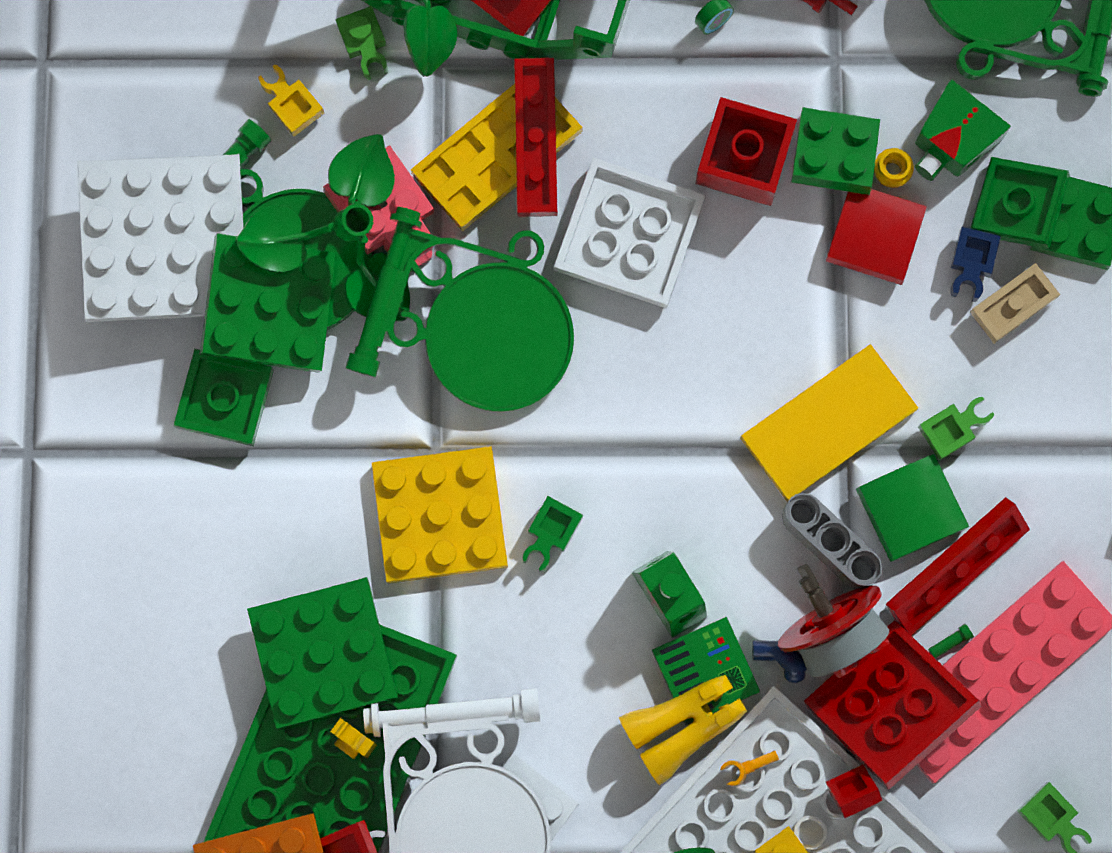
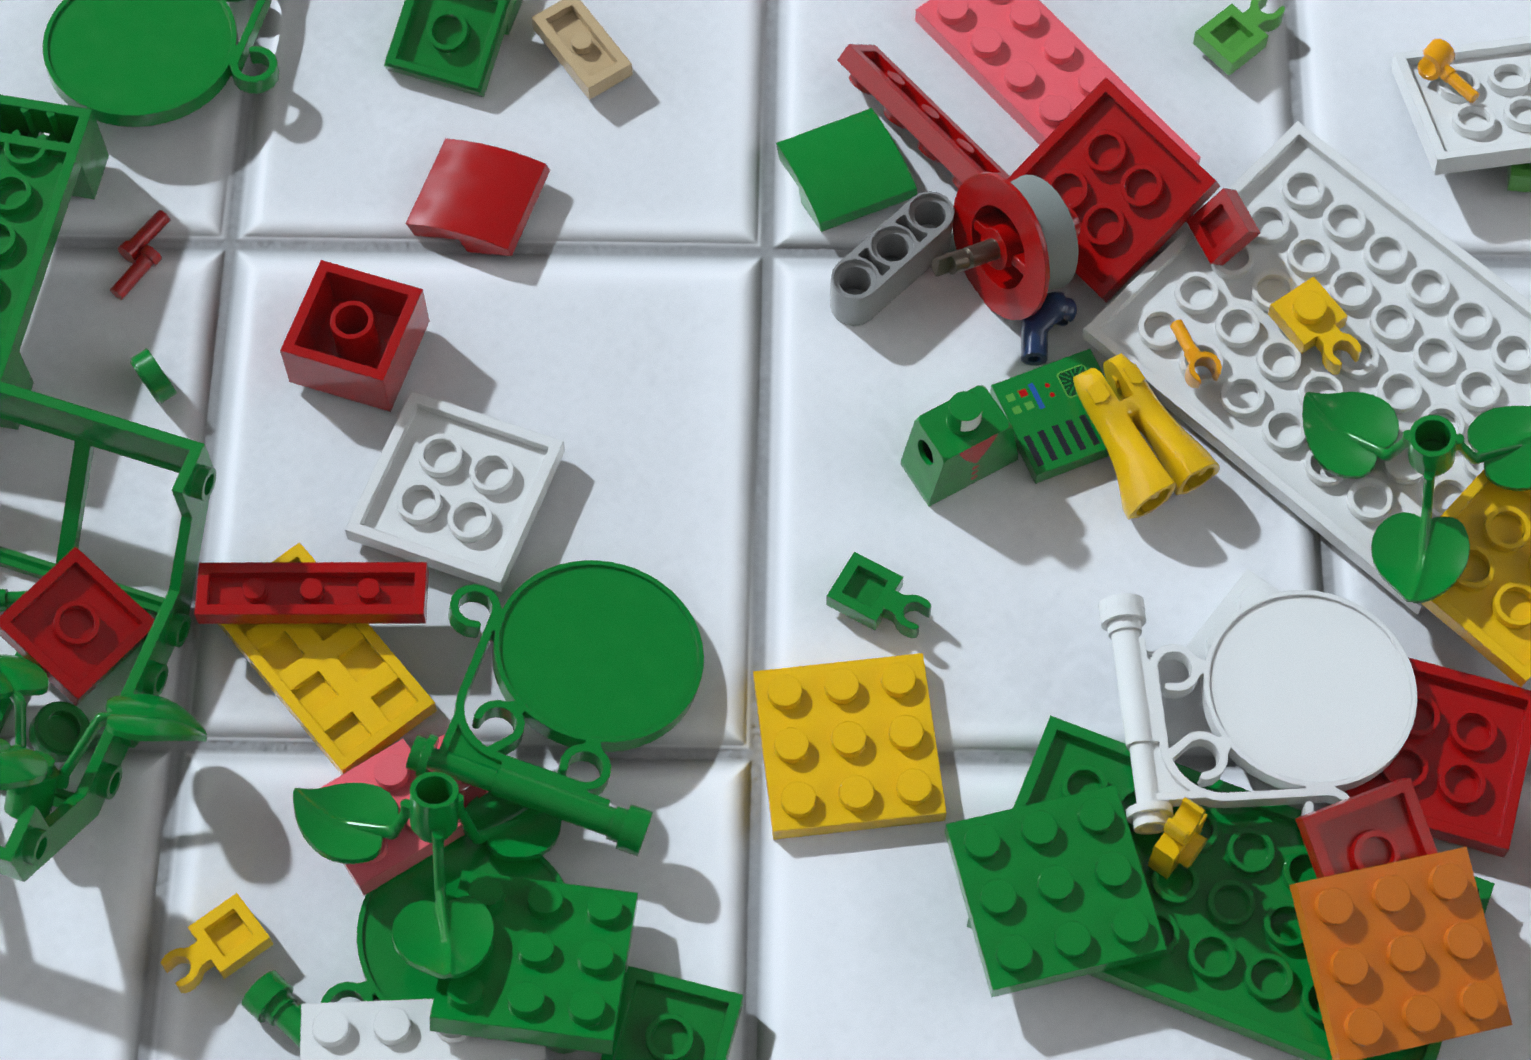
camera: 90 degrees left, 15 degrees down
(362, 37) = (127, 845): bright green plate -> none
(829, 423) = (731, 263): yellow tile -> none
(835, 151) = (362, 230): green plate -> none
(897, 157) = (388, 163): yellow plate -> none
(951, 430) = (742, 122): bright green plate -> none
(957, 133) = (348, 97): green torso -> none
(962, 634) = (1008, 123): green piece -> none
(975, 257) = (520, 85): dark blue plate -> none

